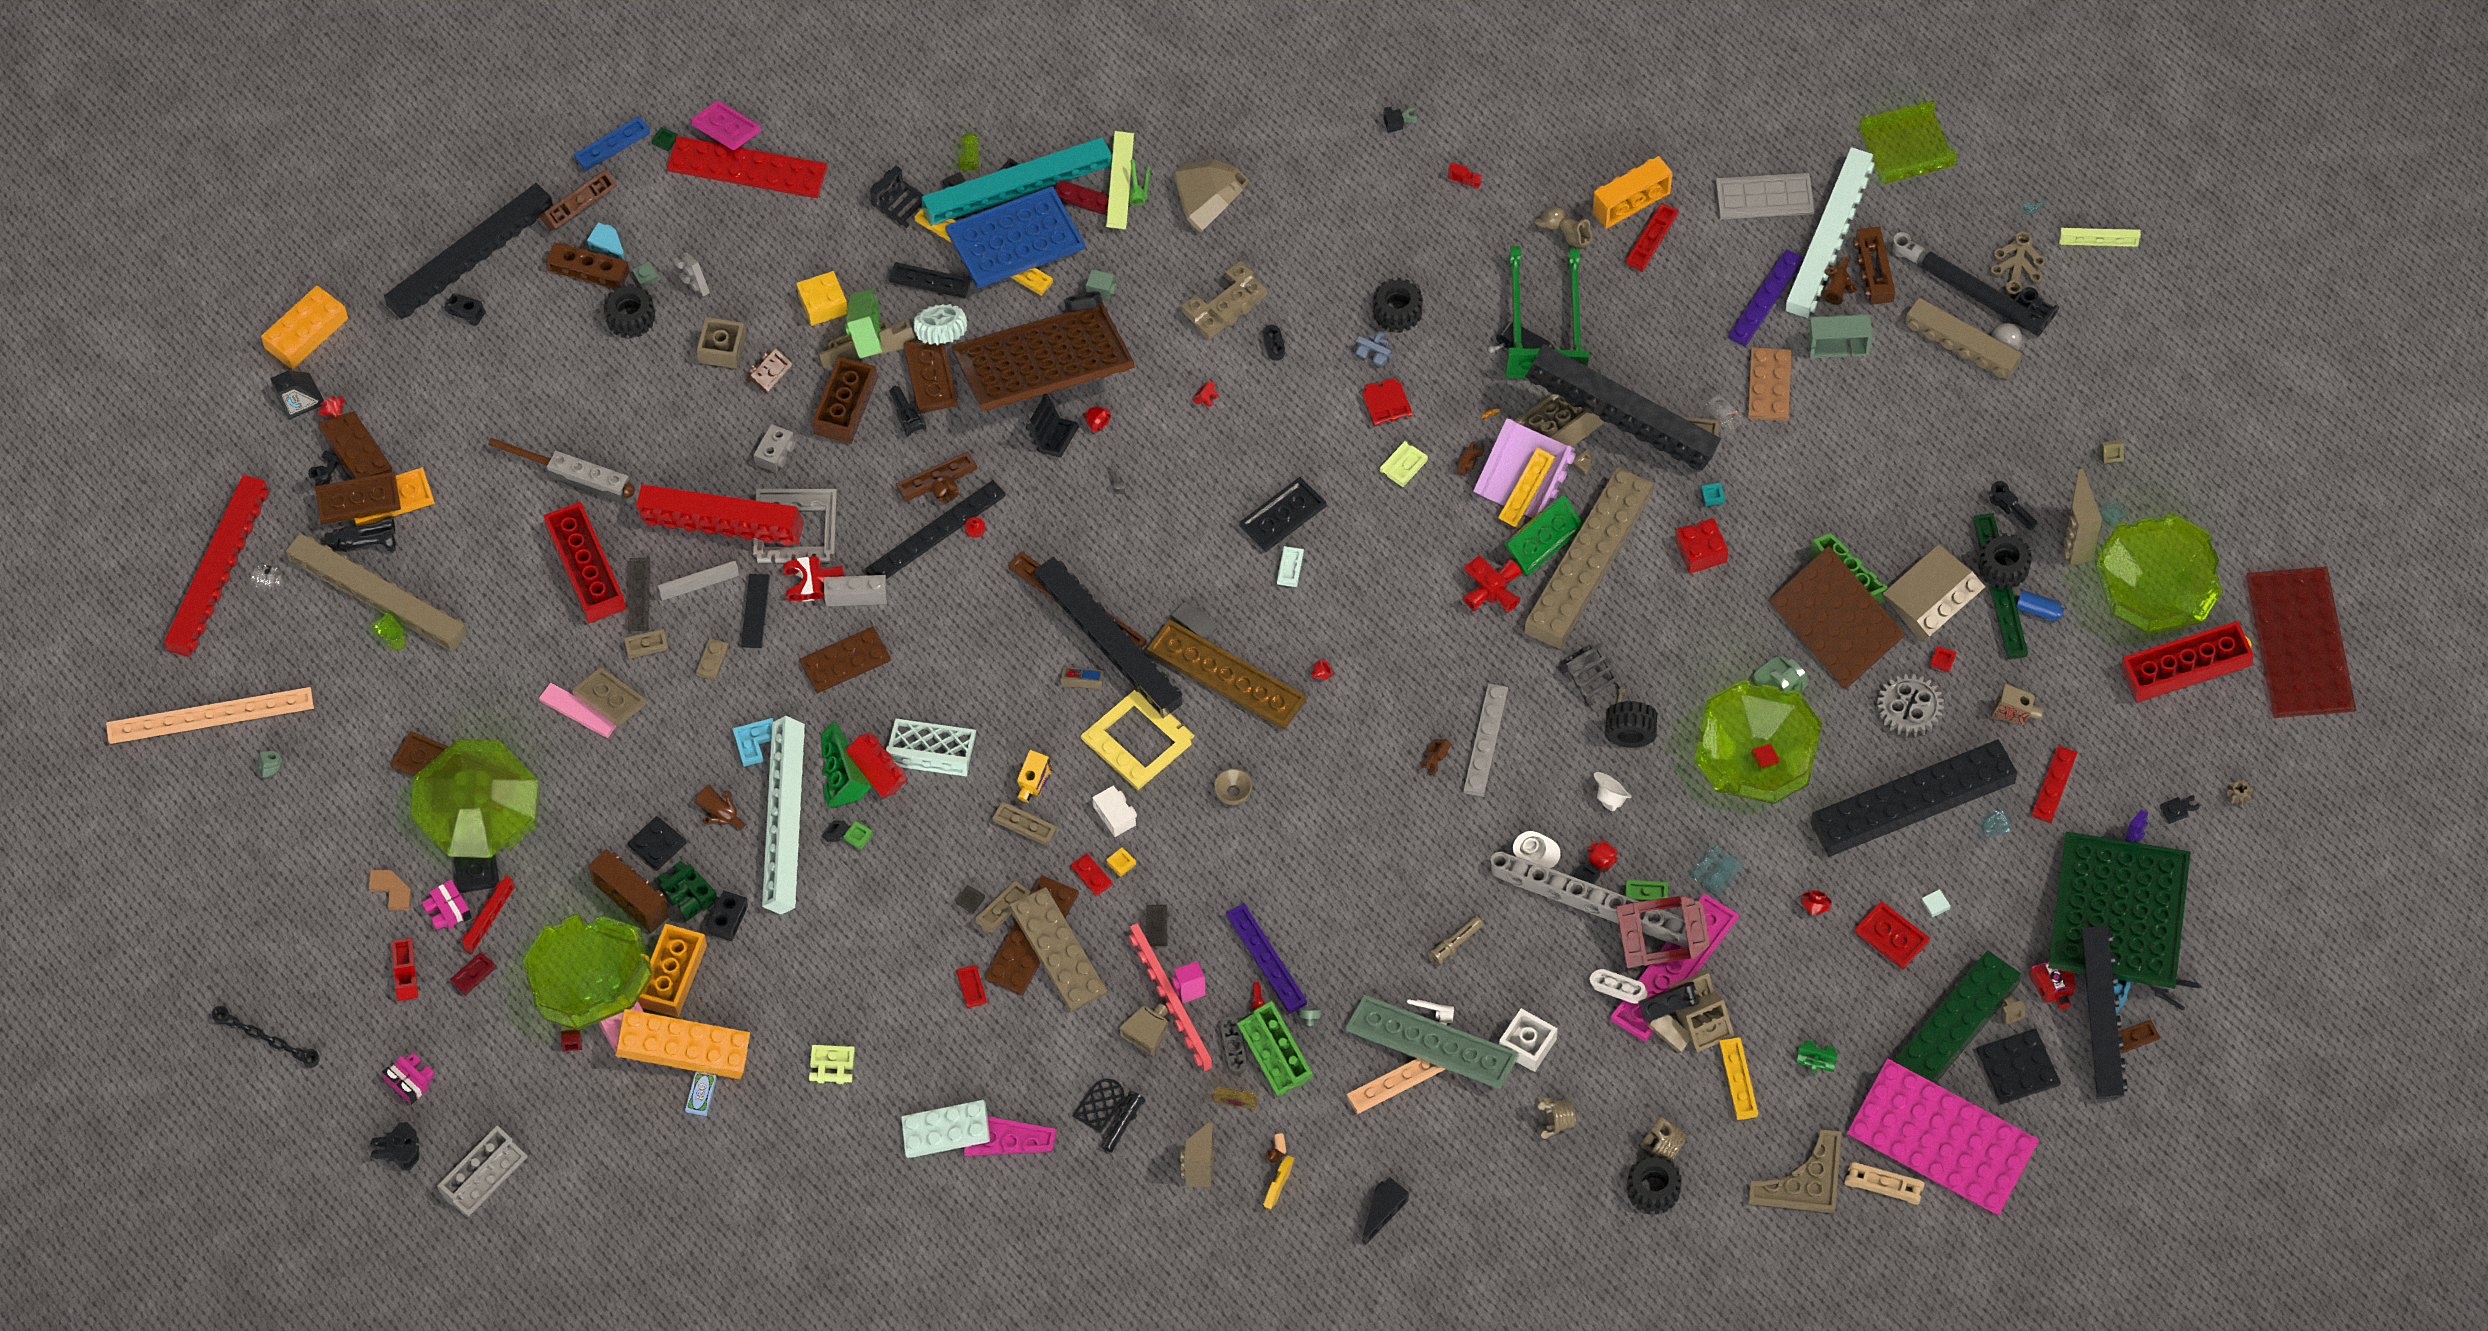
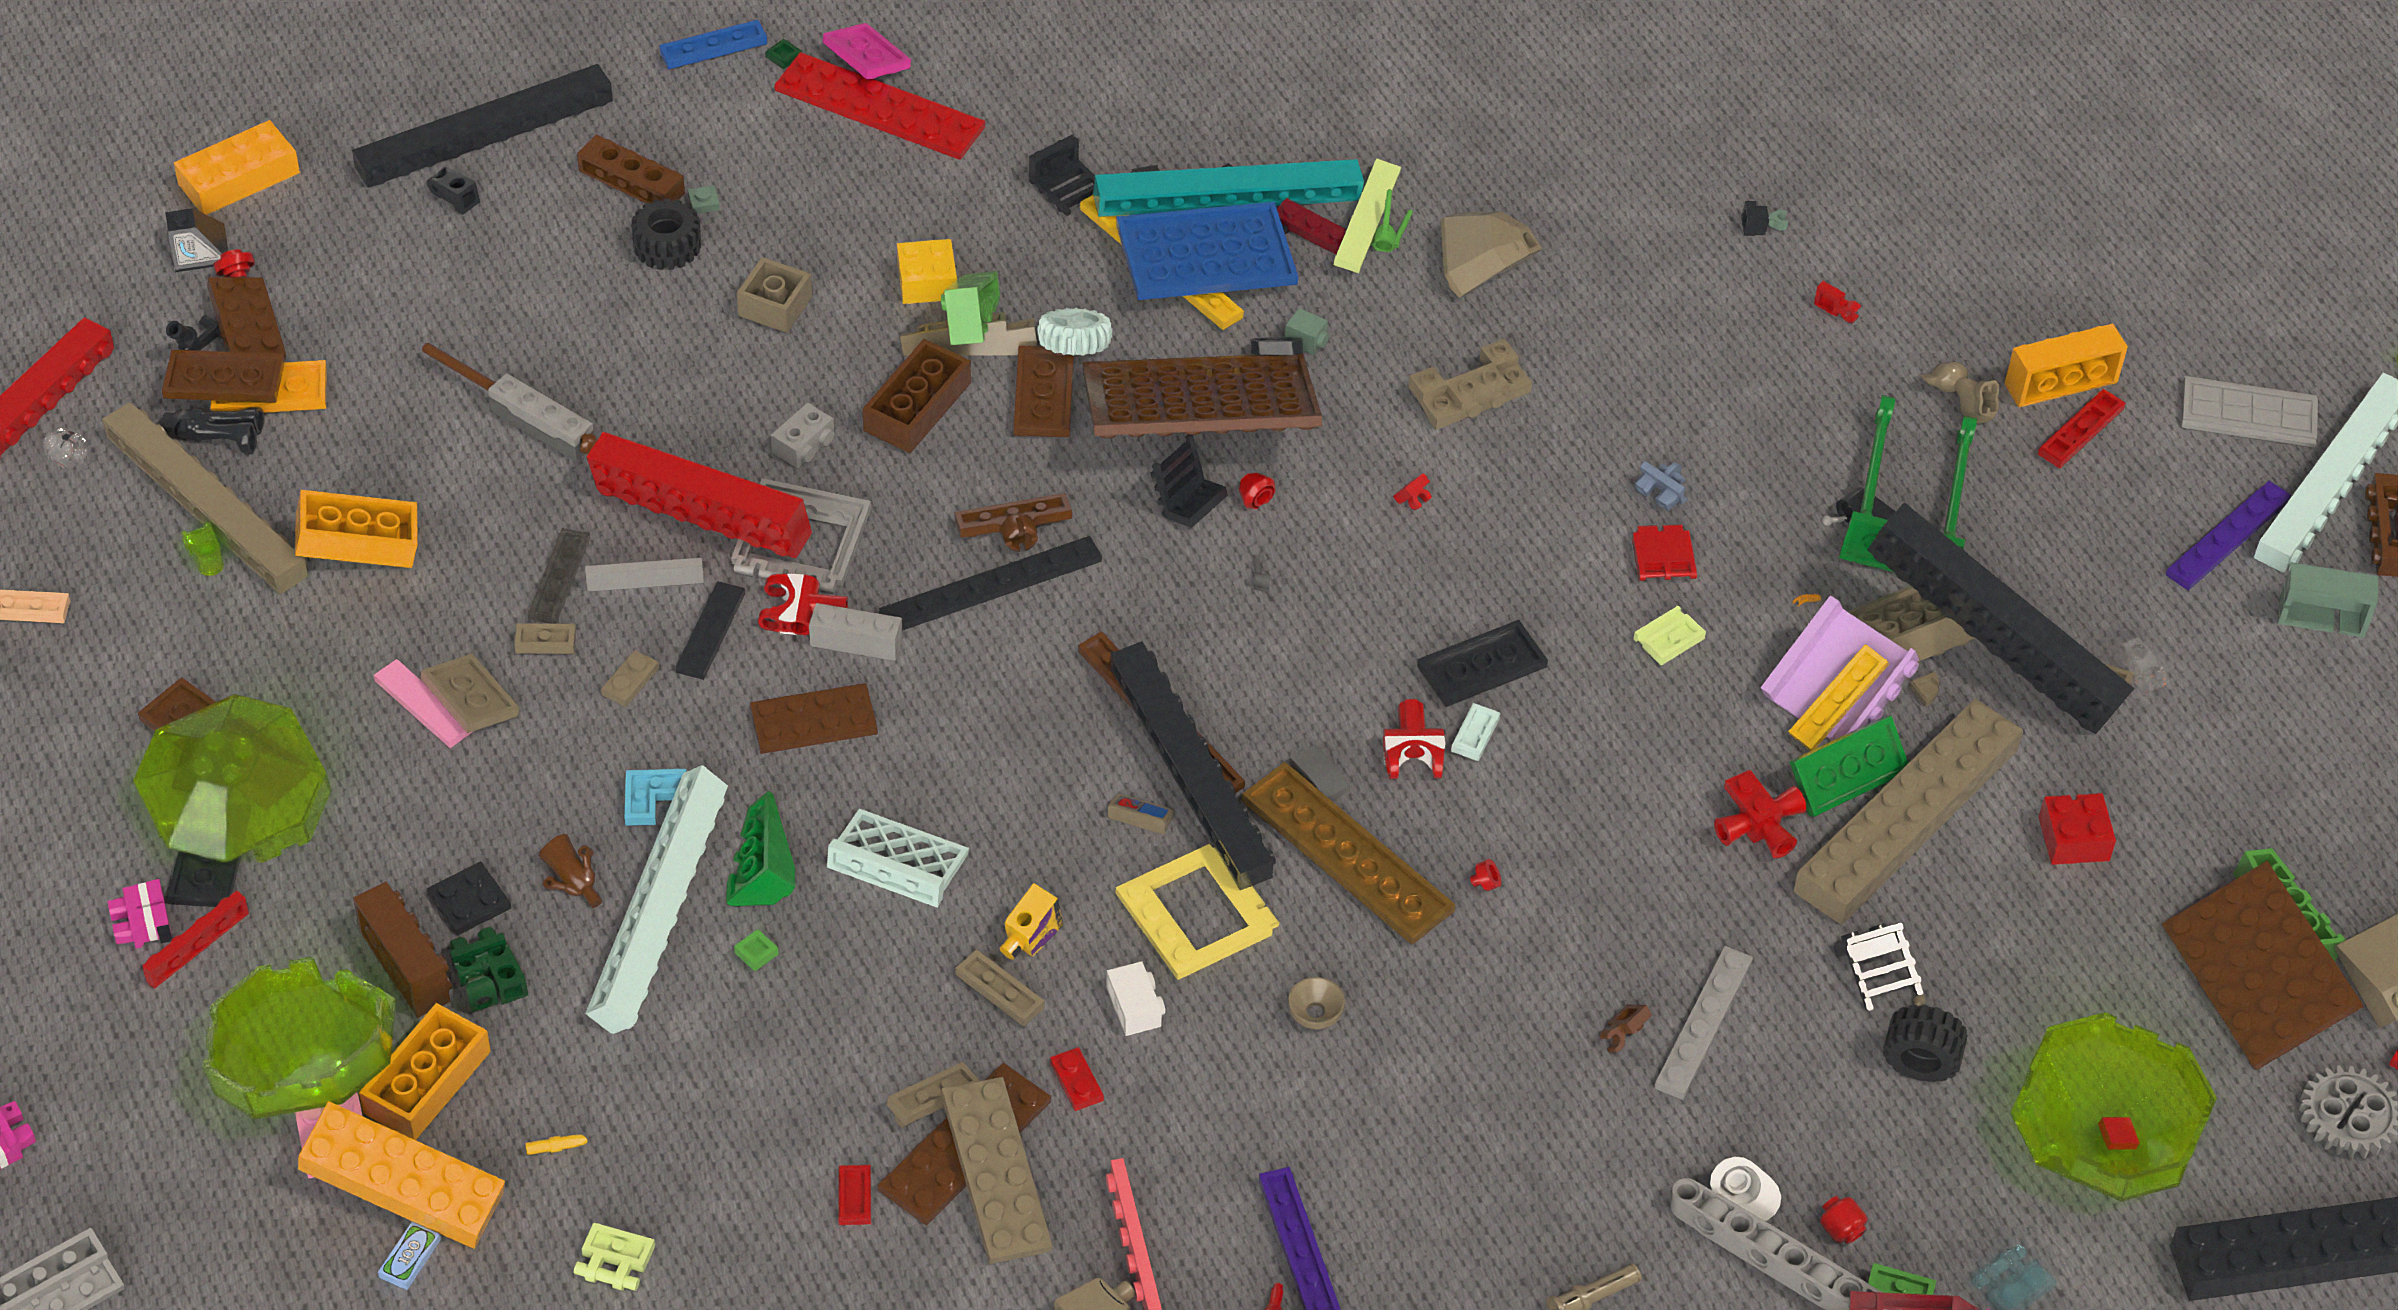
camera: 10 degrees right, 10 degrees down
(389, 882) = (84, 881): medium nougat tile -> none
(404, 969) = (50, 987): red slope -> none
(473, 973) = (144, 1014): dark red plate -> none
(493, 594) = (356, 529): none -> light orange brick
(570, 1036) = (249, 1130): dark red leg -> none
(577, 200) = (644, 95): reddish brown brick -> none
(584, 562) = (496, 518): red brick -> none
(605, 241) = (663, 147): medium azure slope -> none
(694, 274) = (766, 215): light grey plate -> none
(724, 915) = (536, 1020): black brick -> none
(769, 998) = (555, 1144): none -> yellow piece
(770, 370) = (828, 342): bracket -> none
(835, 831) = (725, 937): black plate -> none
(876, 764) = (811, 859): red brick -> none
(907, 414) = (997, 432): black connector -> none
(930, 280) = (1078, 280): black plate -> none
(970, 147) = (1175, 152): clear neon green leg -> none
(970, 899) = (889, 1072): clear smoke plate -> none
(975, 527) = (1047, 590): red tile -> none
(1121, 862) = (1124, 1070): yellow plate -> none
(1156, 925) = (1152, 1169): clear smoke plate -> none
(1189, 982) = (1175, 1259): dark pink brick -> none
(1250, 583) = (1413, 740): none -> red connector
(1278, 342) = (1519, 449): black beam -> none
(1397, 318) = (1708, 452): black tyre -> none
(1467, 461) = (1761, 648): reddish brown plate -> none
(1587, 873) = (1816, 1239): black plate -> none
(1610, 791) = (1874, 1134): white piece -> none
(1712, 494) = (2106, 766): teal plate -> none
(1769, 384) = (2214, 643): medium nougat plate -> none
(1782, 674) = (2170, 1022): sand green piece -> none
(1837, 282) = (2335, 536): reddish brown piece -> none

